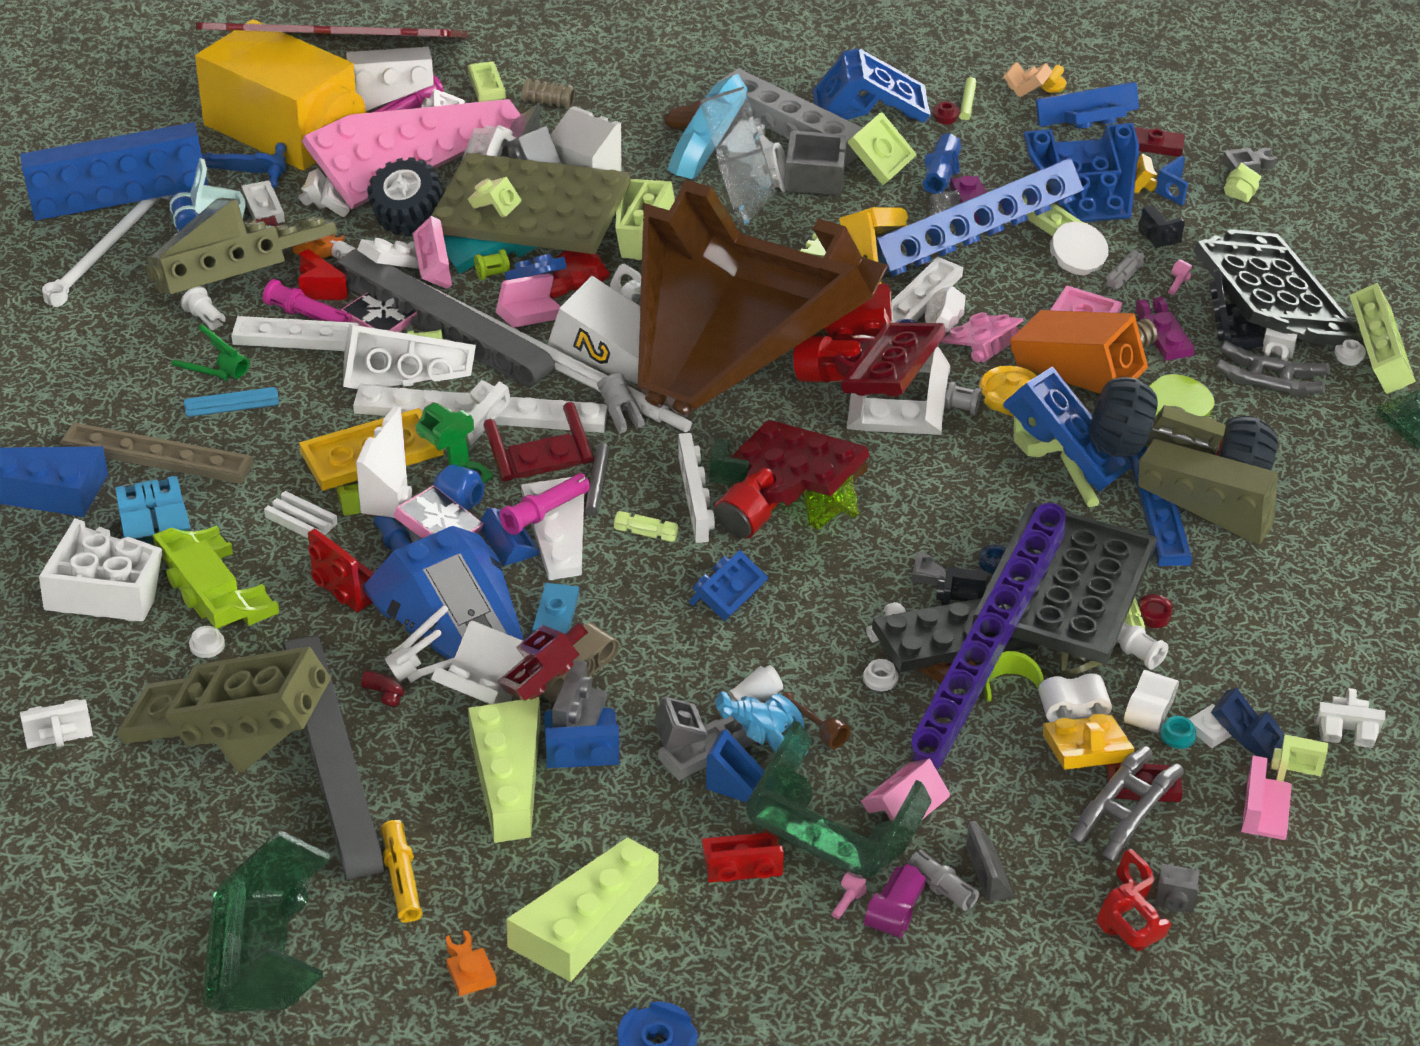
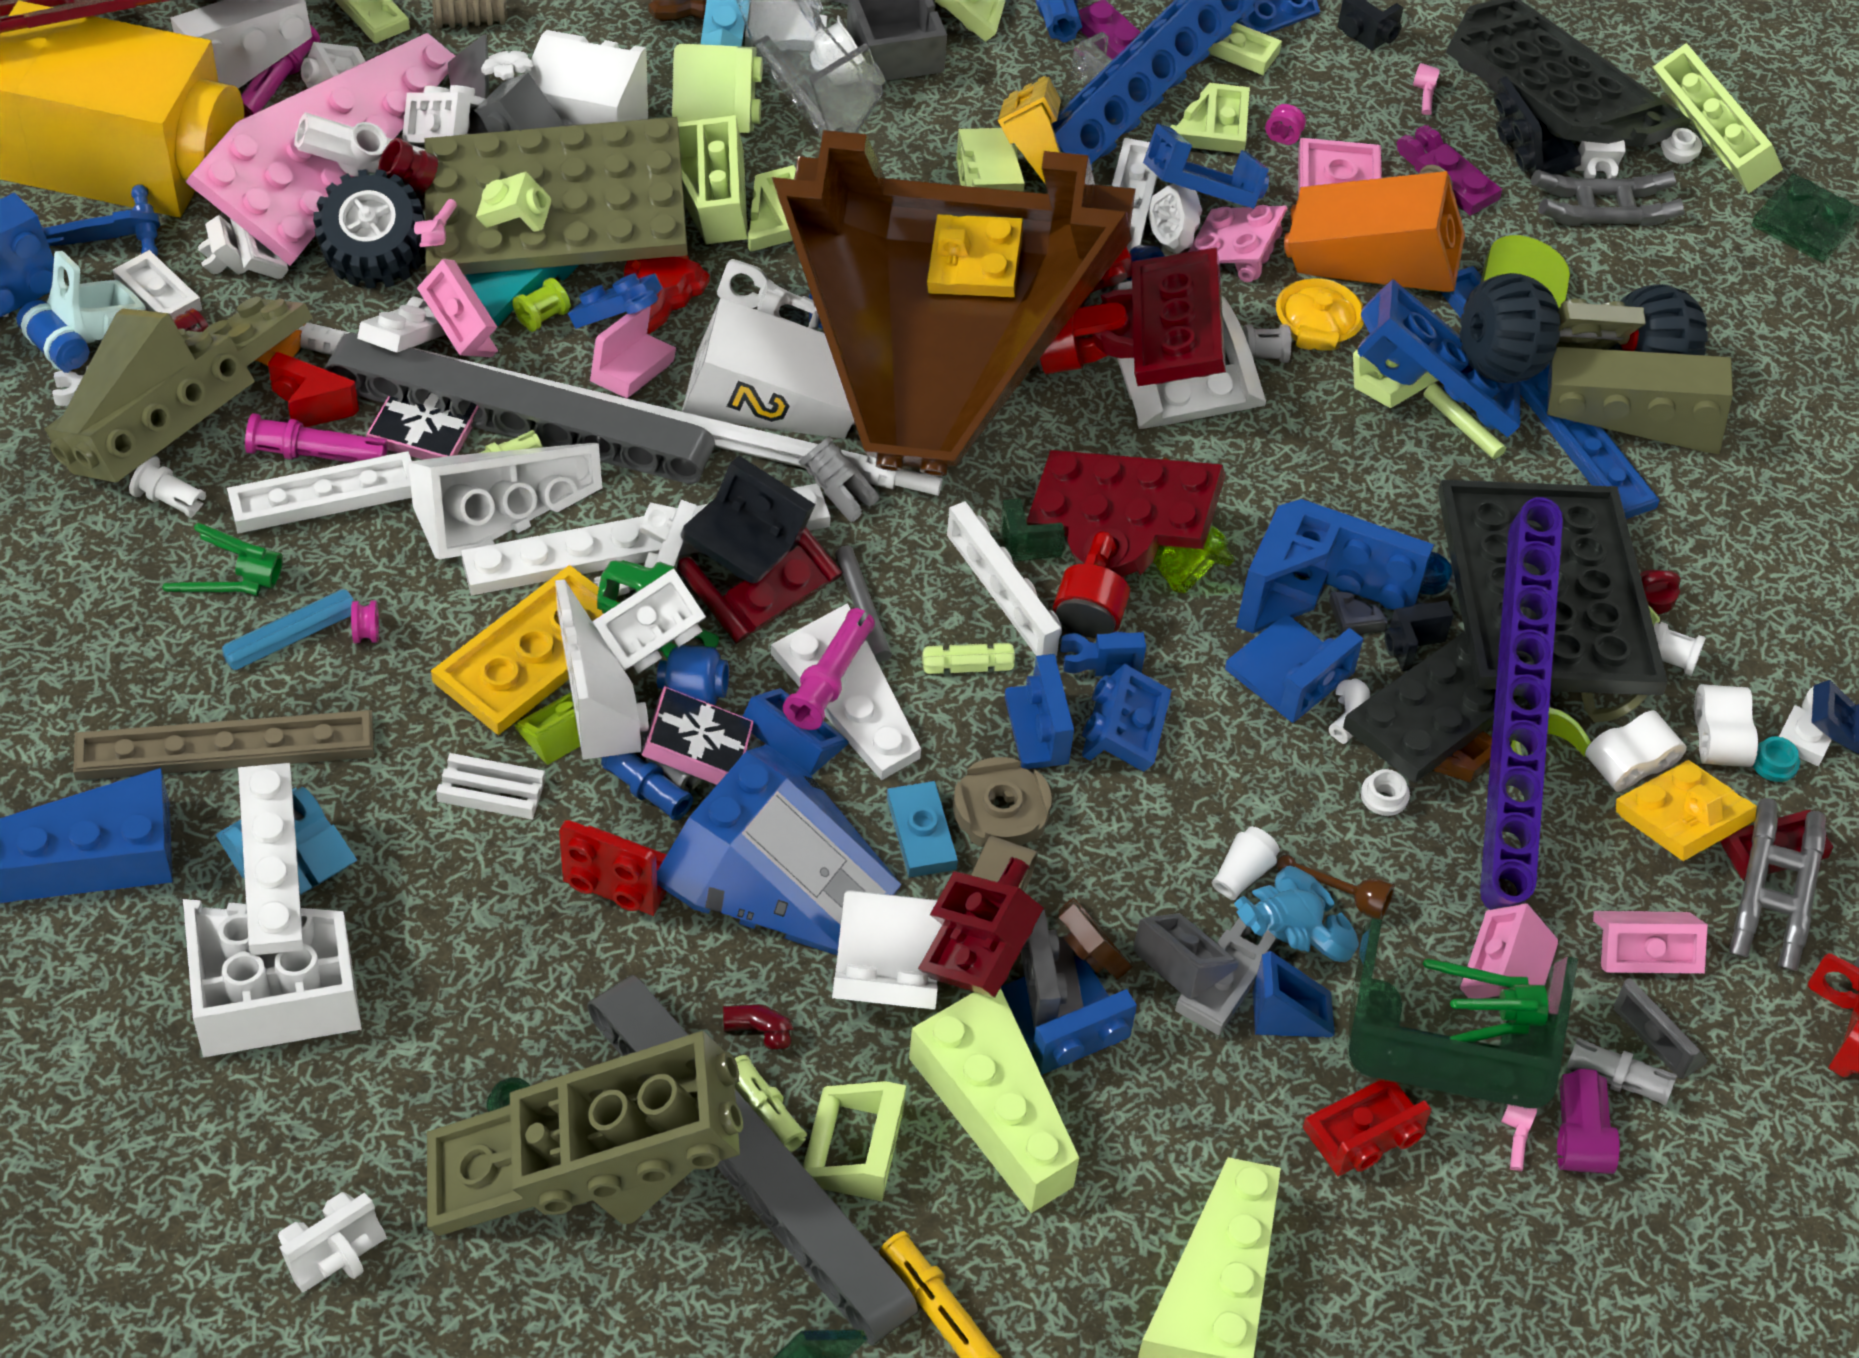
camera: 25 degrees left, 10 degrees up
(131, 505) = (270, 859): none -> white plate
(206, 580) = (424, 936): lime bracket -> none
(206, 642) = (472, 1034): white plate -> none
(277, 407) = (365, 621): none -> dark pink bush
(358, 730) = (768, 1104): none -> yellowish green pin
(404, 658) = (772, 976): white plant -> none
(414, 775) = (866, 1179): none -> yellowish green tile
(421, 146) = (349, 146): none -> white piece
(436, 441) = (650, 621): none -> white bracket
(439, 201) = (433, 230): none -> bright pink hand
(445, 164) = (413, 167): none -> dark red wheel
(540, 121) = (504, 64): none -> white plant
(541, 411) = (749, 522): none -> black bracket
(620, 695) = (1090, 941): none -> reddish brown wing
(634, 609) = (1005, 778): none -> dark tan plate
(669, 568) = (1041, 717): none -> blue bracket
(676, 161) = (716, 83): none -> yellowish green bracket
(749, 543) = (1105, 655): none -> blue plate
(779, 292) = (975, 255): none -> yellow hinge
(863, 586) = (1293, 666): none -> blue bracket
(881, 811) = (1520, 1004): none -> green plant
(919, 517) = (1333, 552): none -> blue bracket
(970, 288) = (1168, 160): none -> blue window
(1011, 262) = (1217, 119): none -> yellowish green wing
(1012, 813) = (1652, 942): none -> bright pink panel
(1059, 274) = (1289, 116): none -> dark pink bush
(1079, 248) = (1290, 75): white tile -> none
(1125, 270) = (1356, 94): light grey axle -> none

